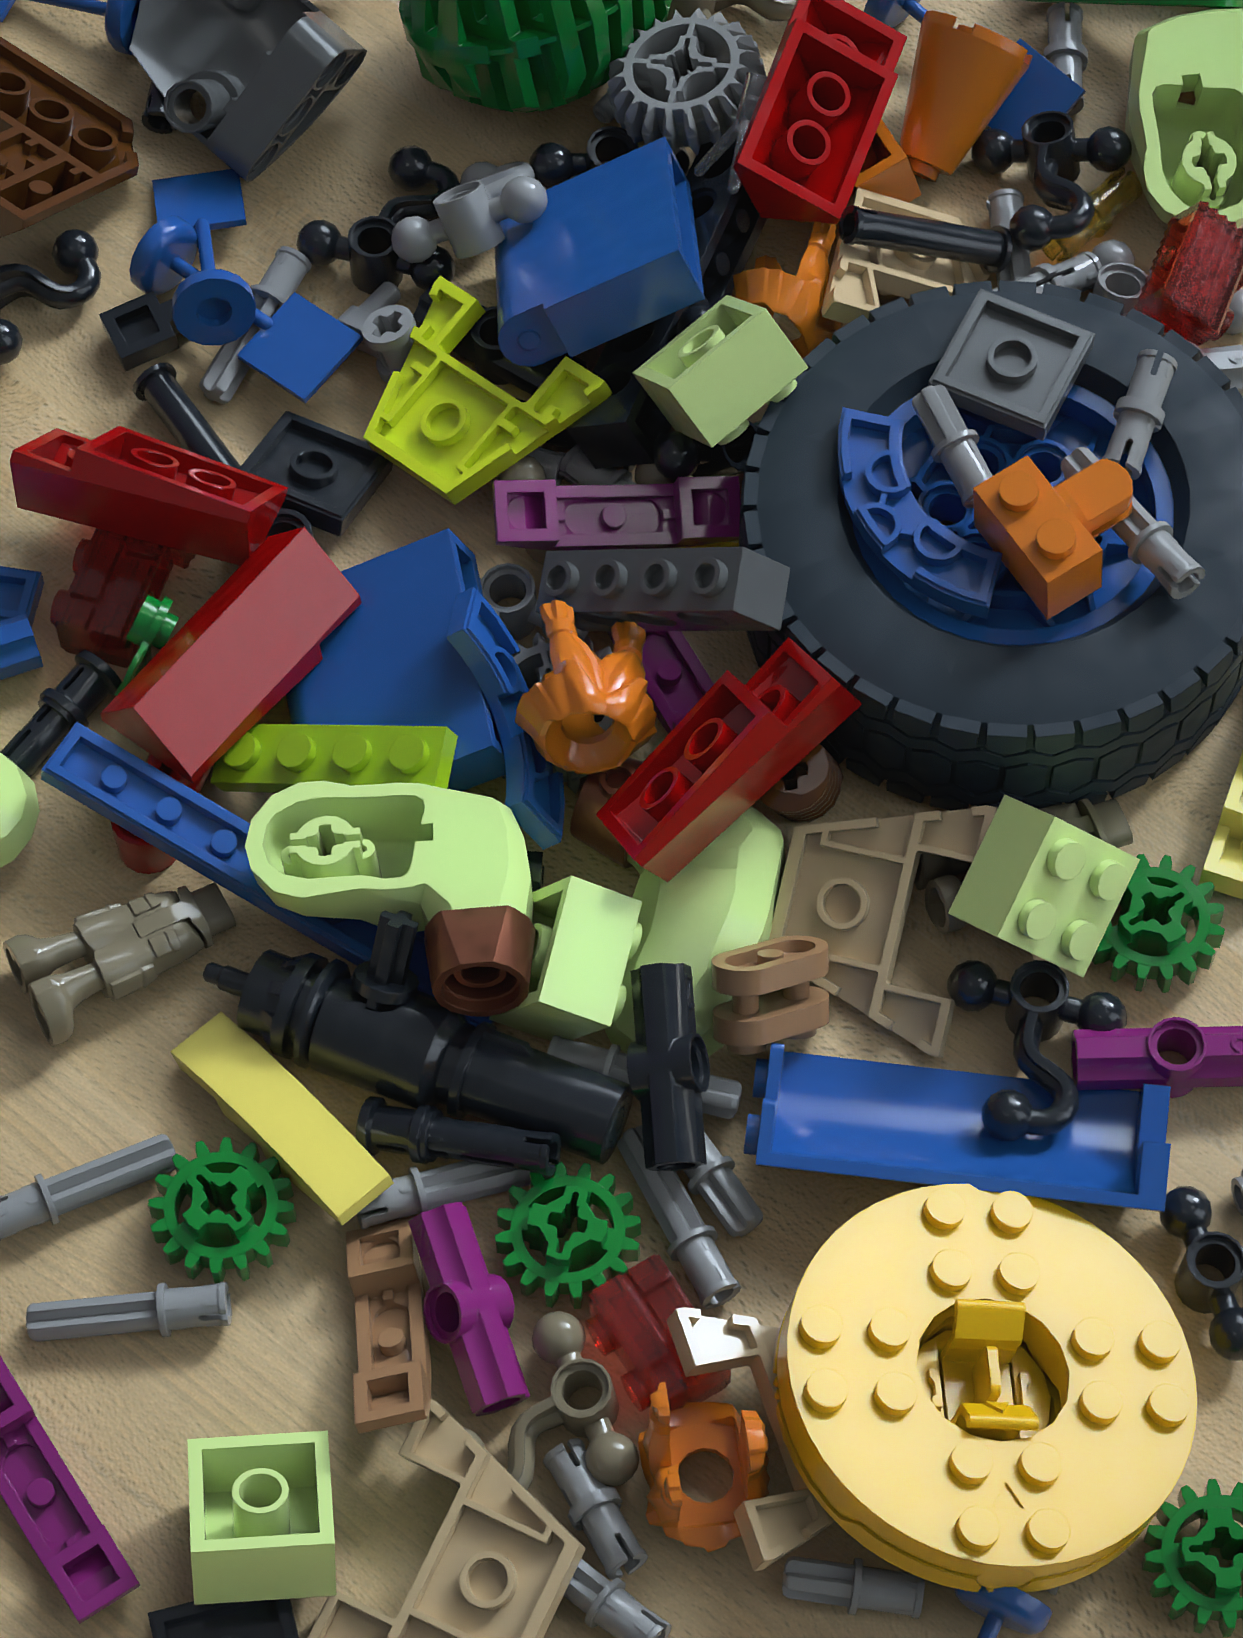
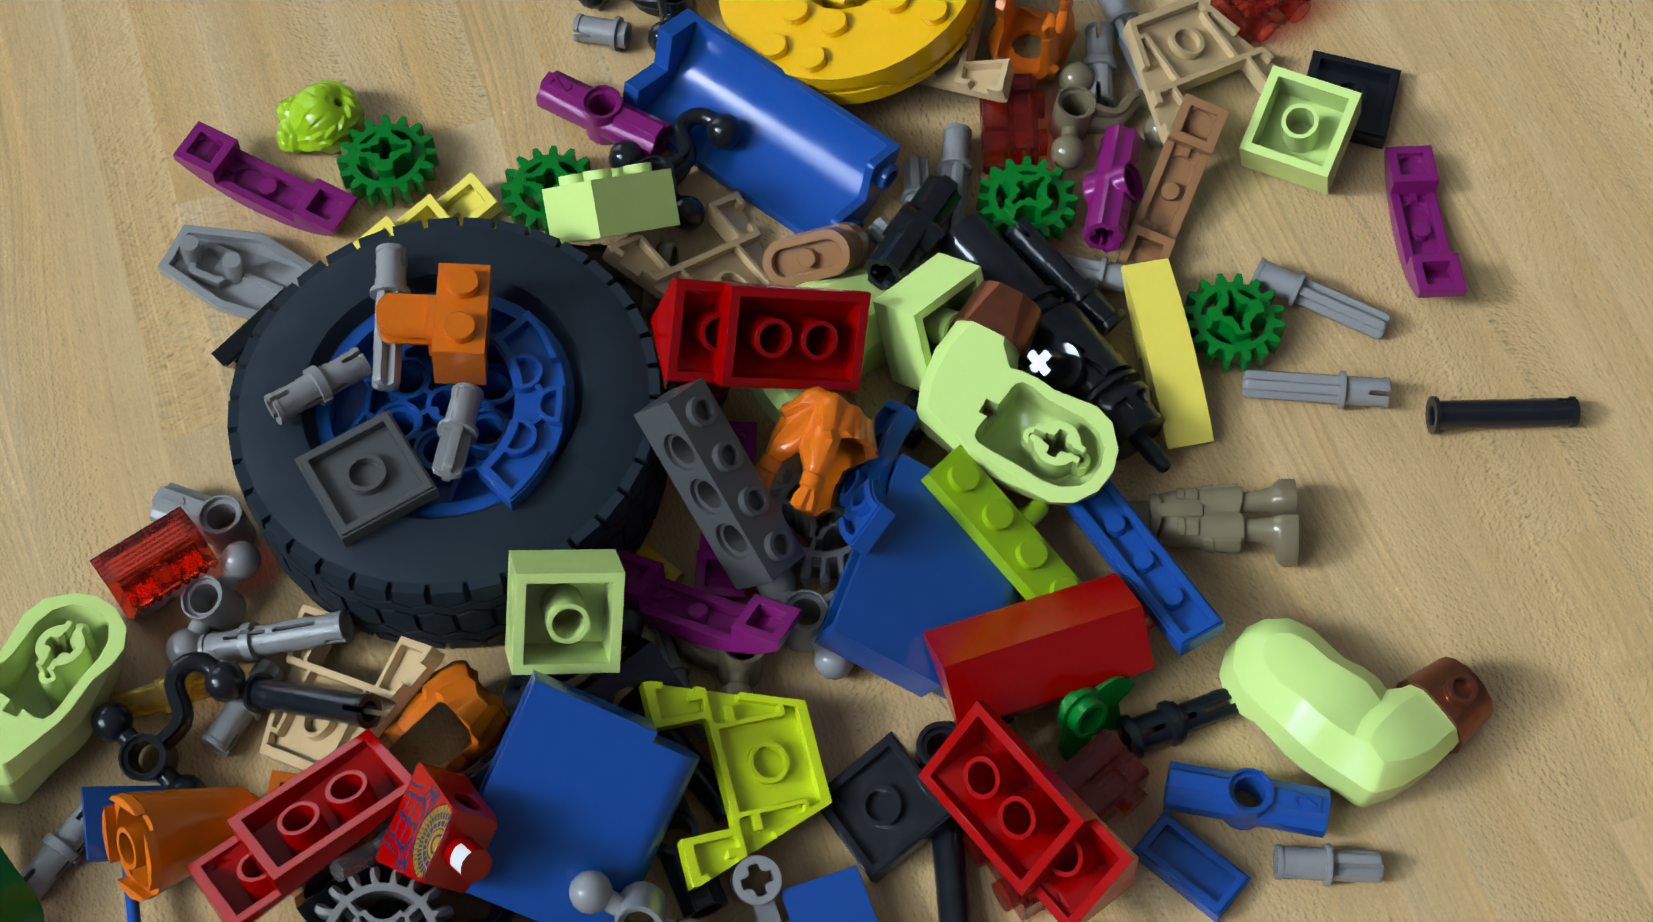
camera: 150 degrees left, 0 degrees up
(681, 134) = (440, 831): none -> red torso

